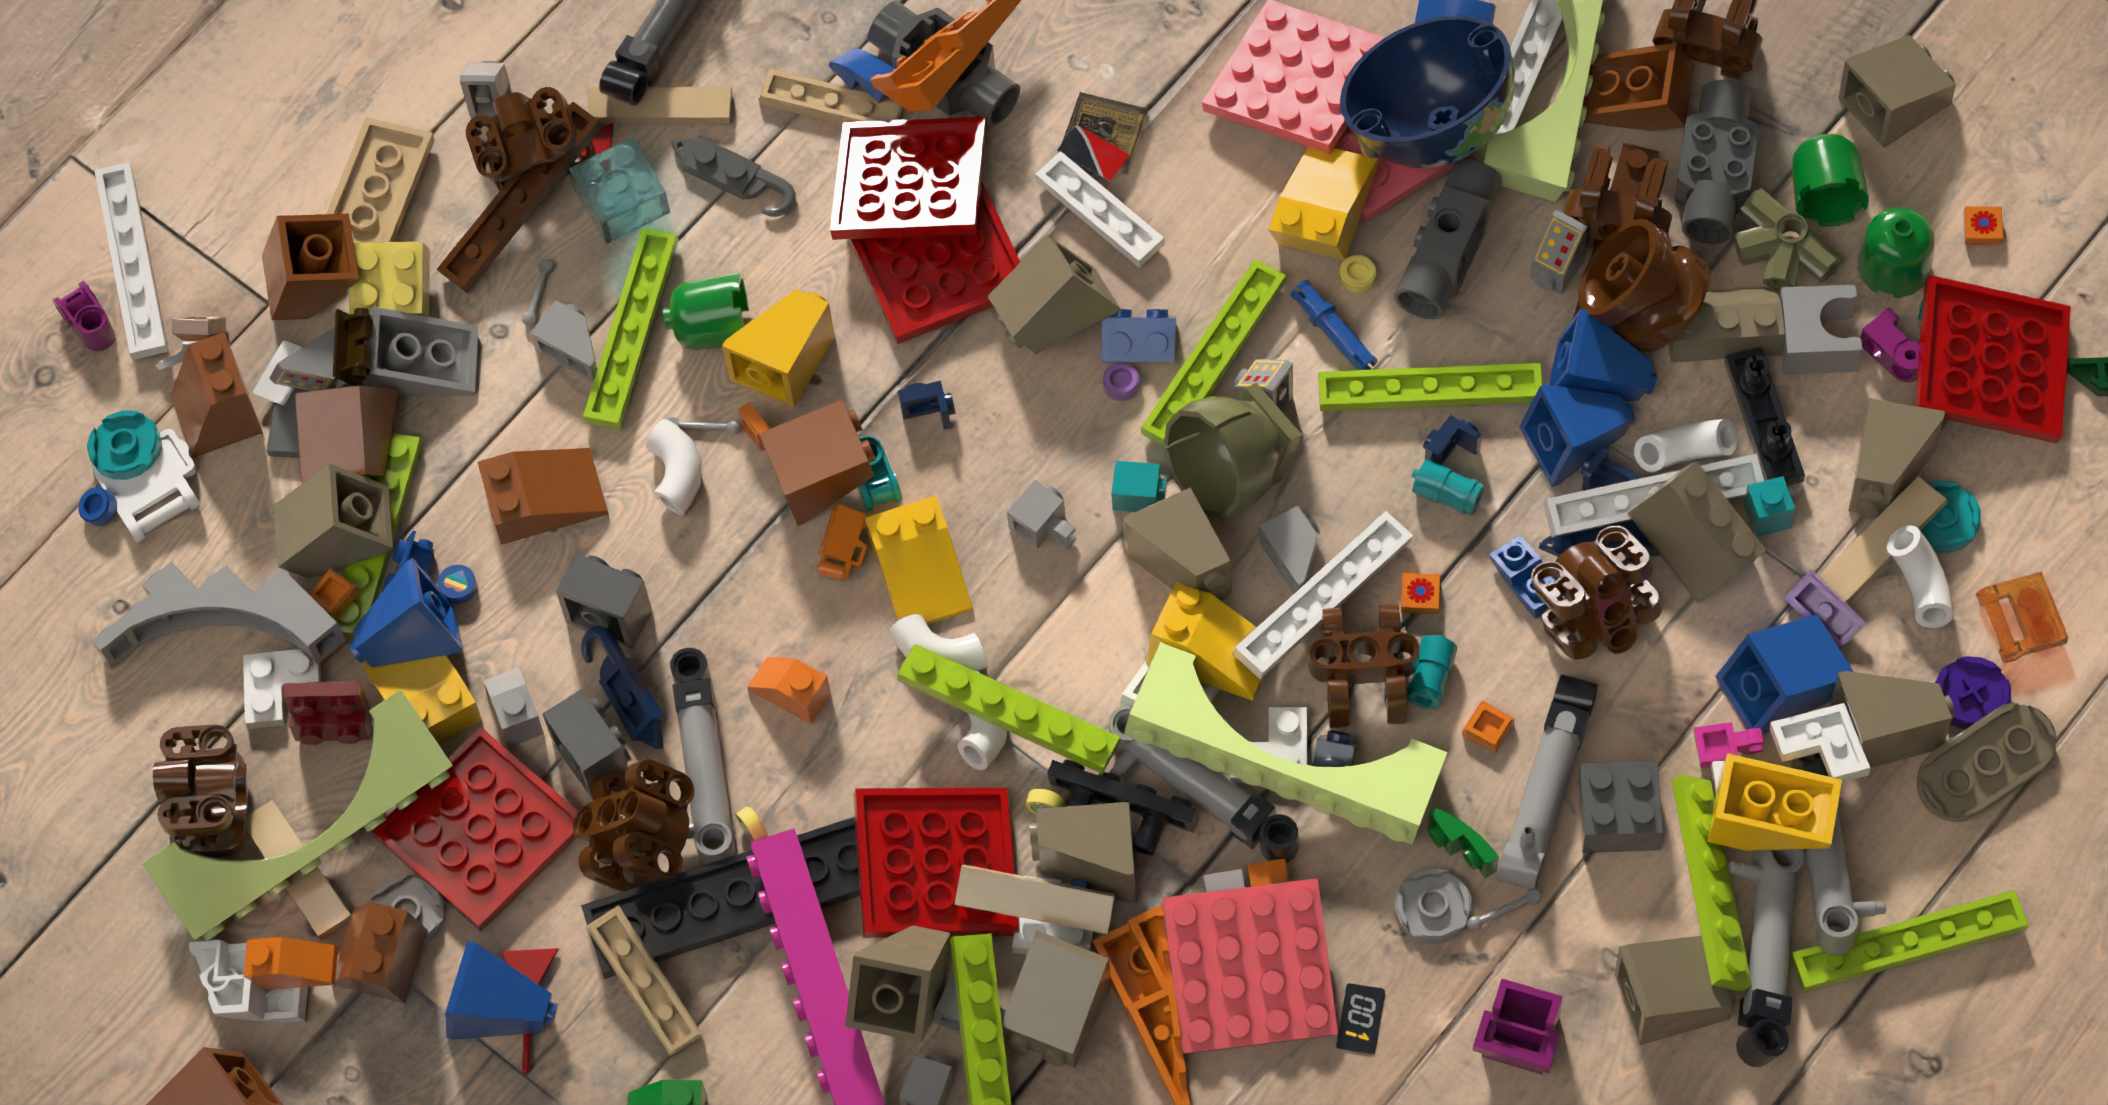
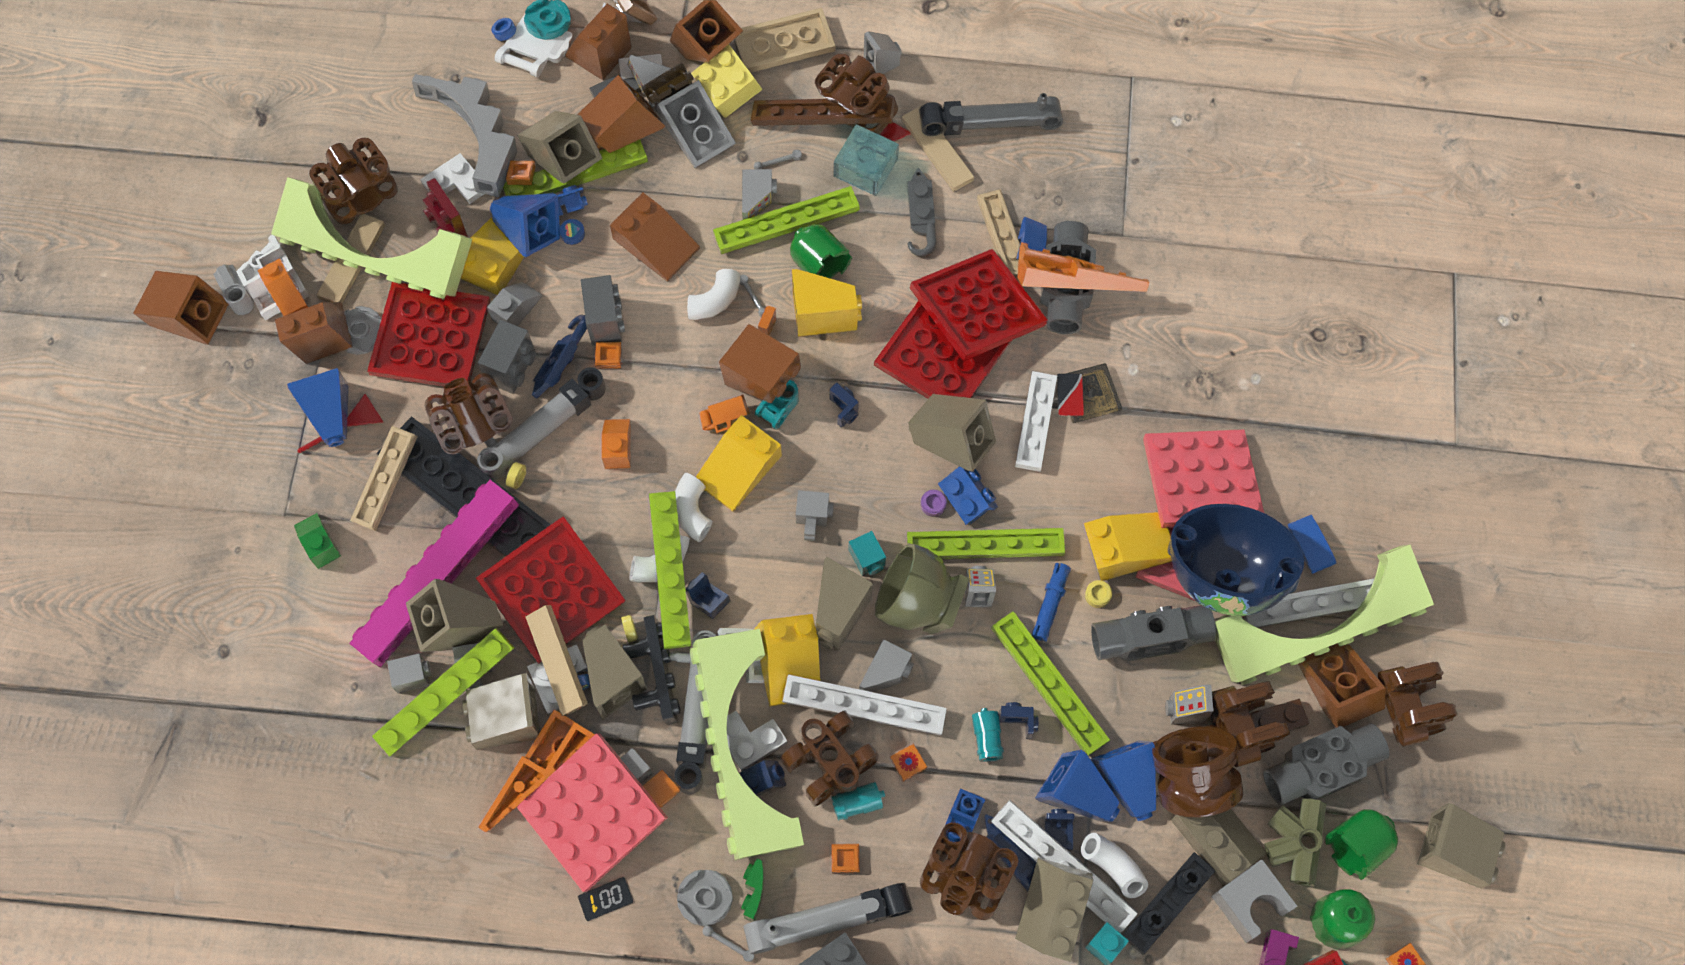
camera: 50 degrees right, 5 degrees up
(232, 1032) = (233, 289): none -> light grey piece
(661, 635) = (608, 355): none -> orange tile
(1069, 692) = (706, 596): none -> dark blue bracket

